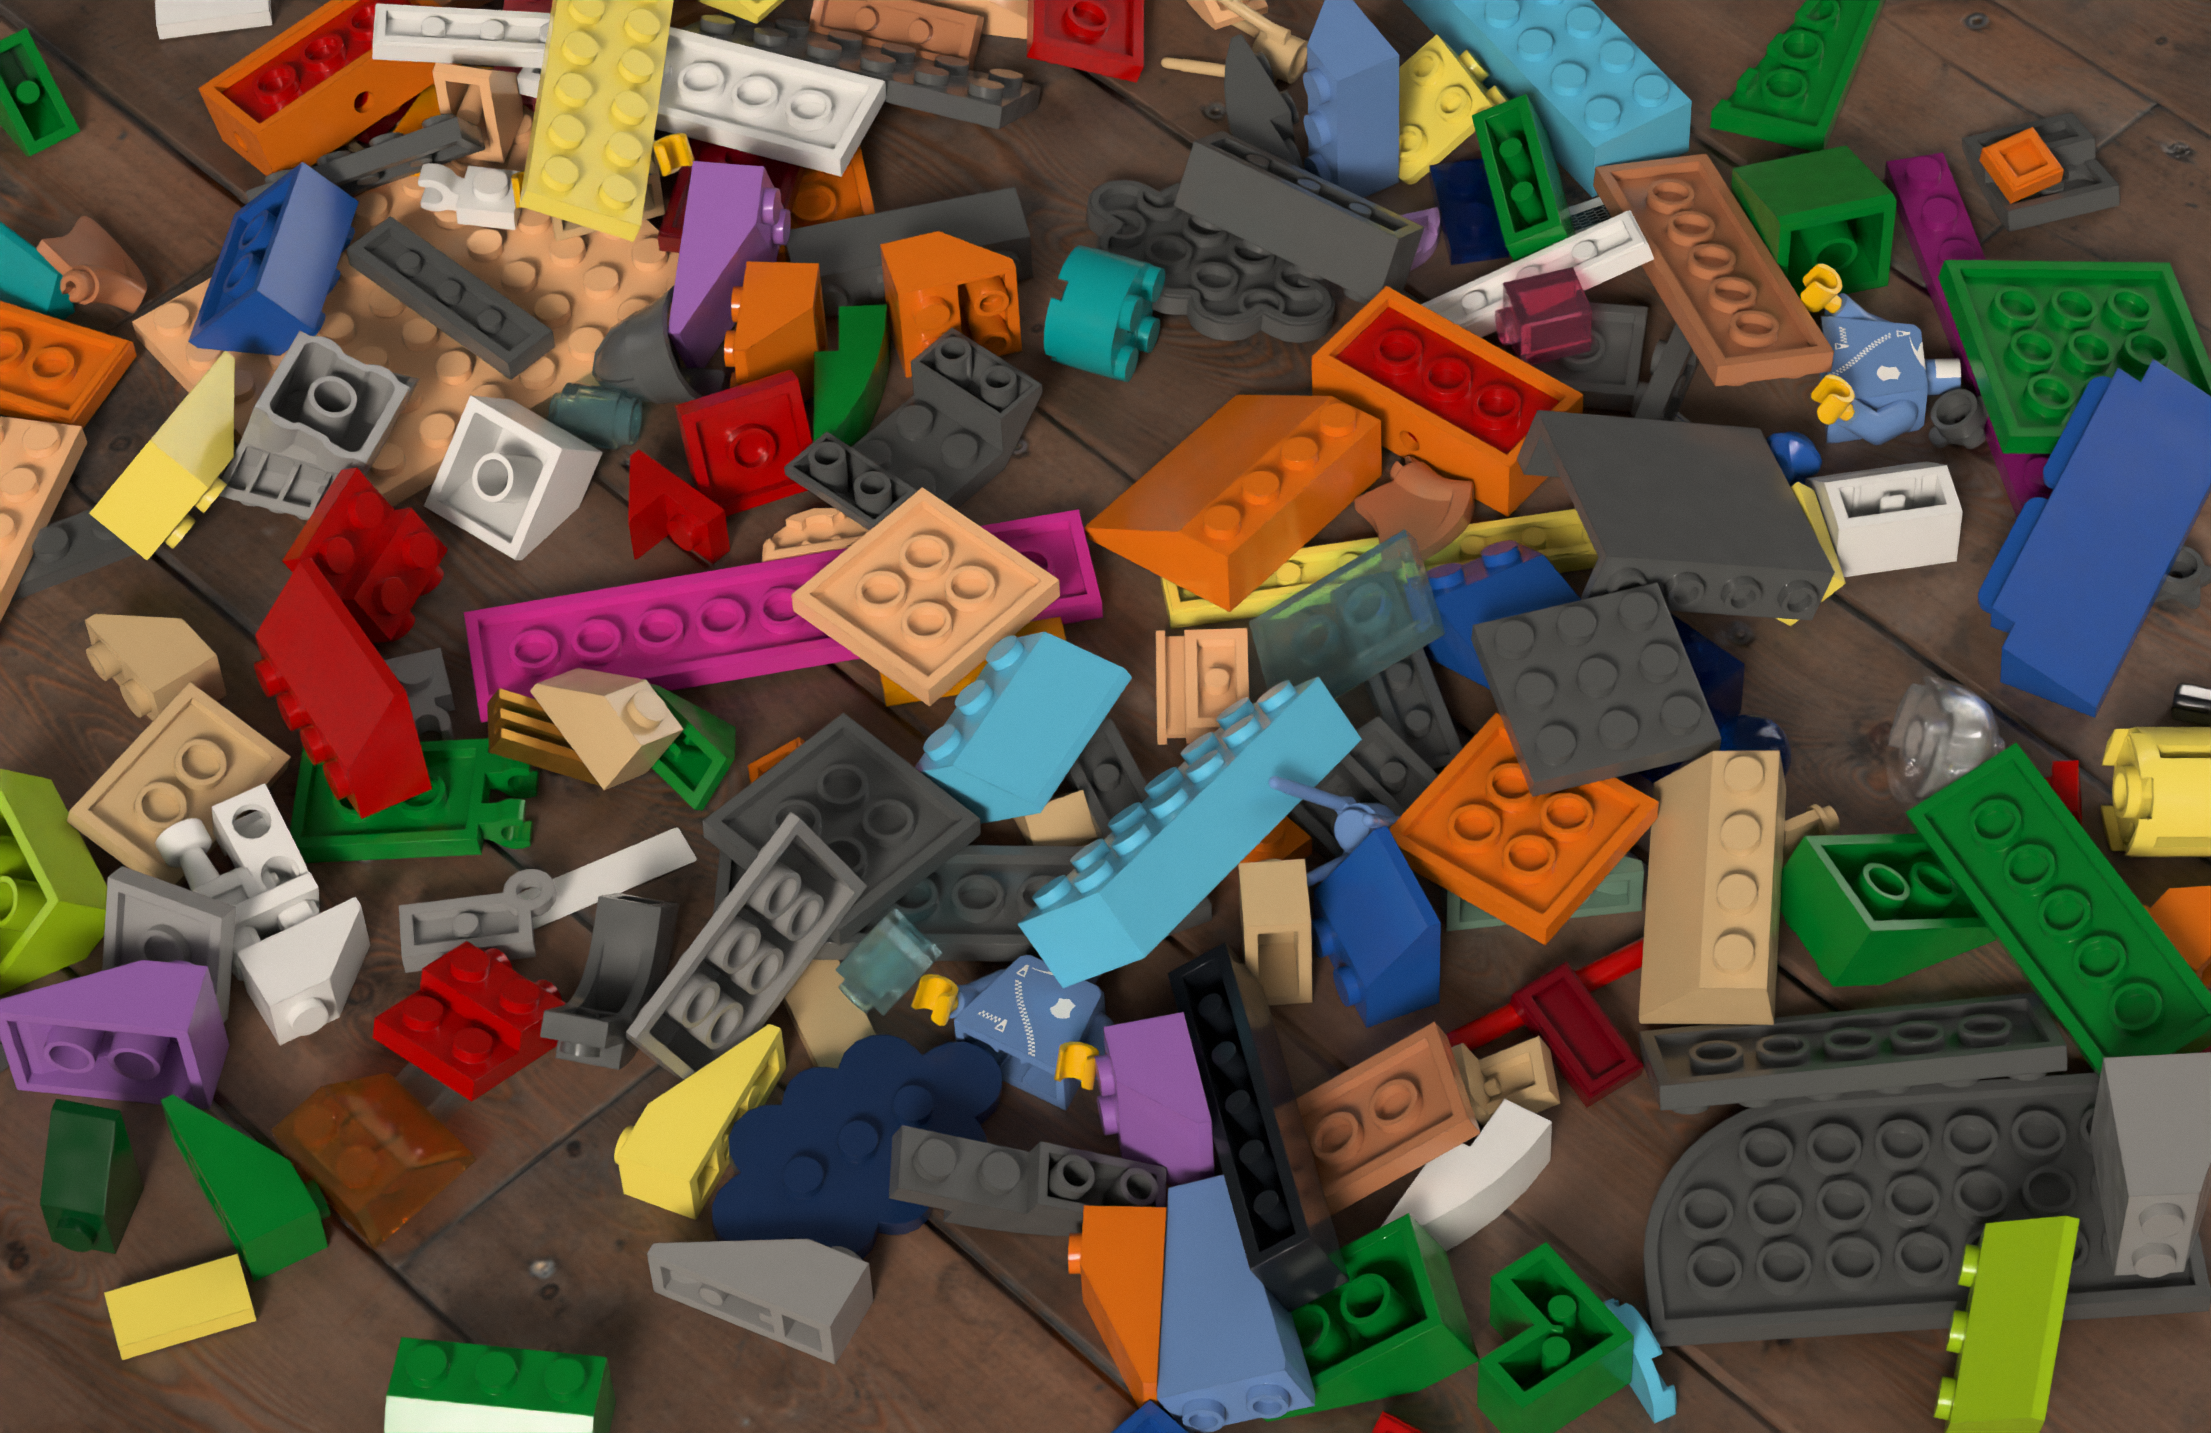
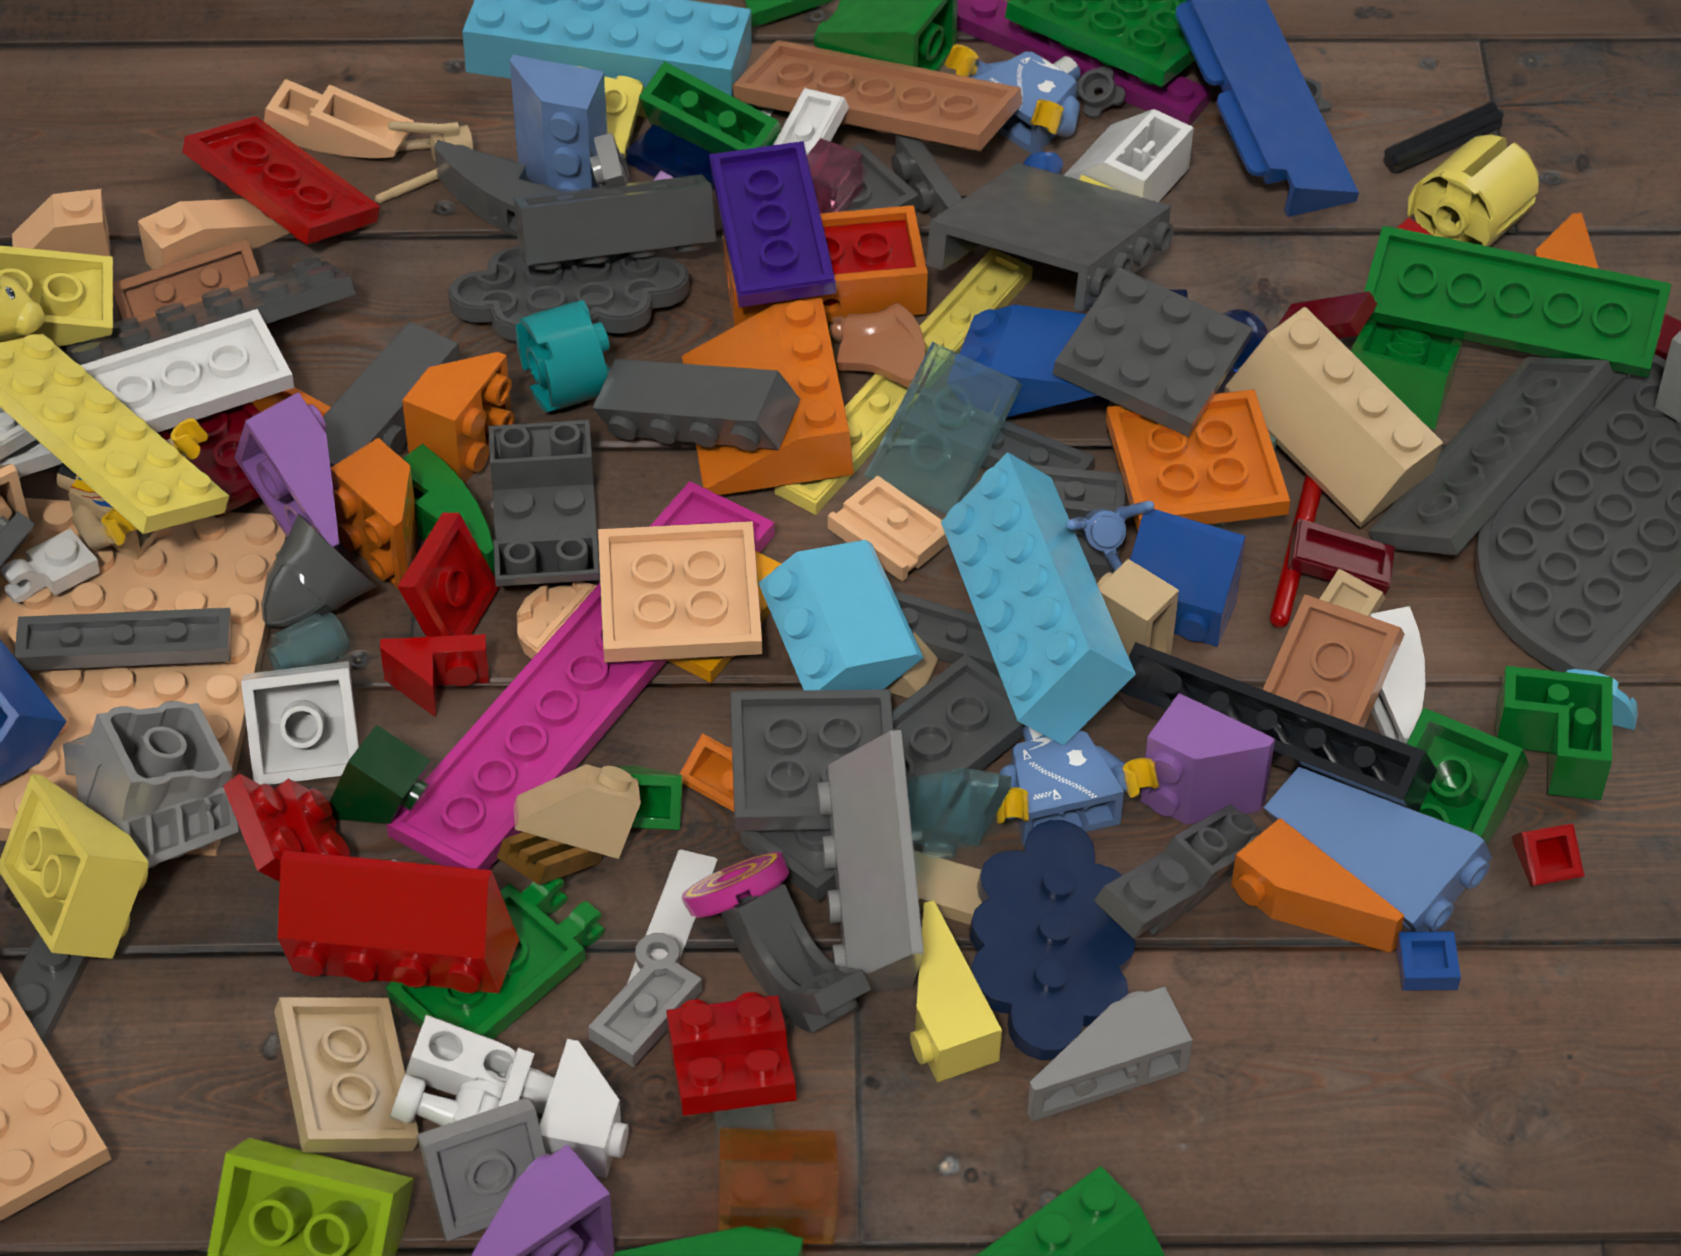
camera: 50 degrees left, 0 degrees up
(152, 659) = (214, 1014): tan slope -> none
(485, 563) = (379, 780): none -> dark green slope
(650, 883) = (727, 886): none -> dark pink tile
(1142, 439) = (696, 404): none -> dark grey brick
(1360, 167) = (609, 165): none -> light grey hinge
(1416, 316) = (772, 224): none -> dark purple tile
(1864, 798) = (1340, 314): none -> dark red tile
(1940, 737) = (1322, 259): clear cylinder -> none

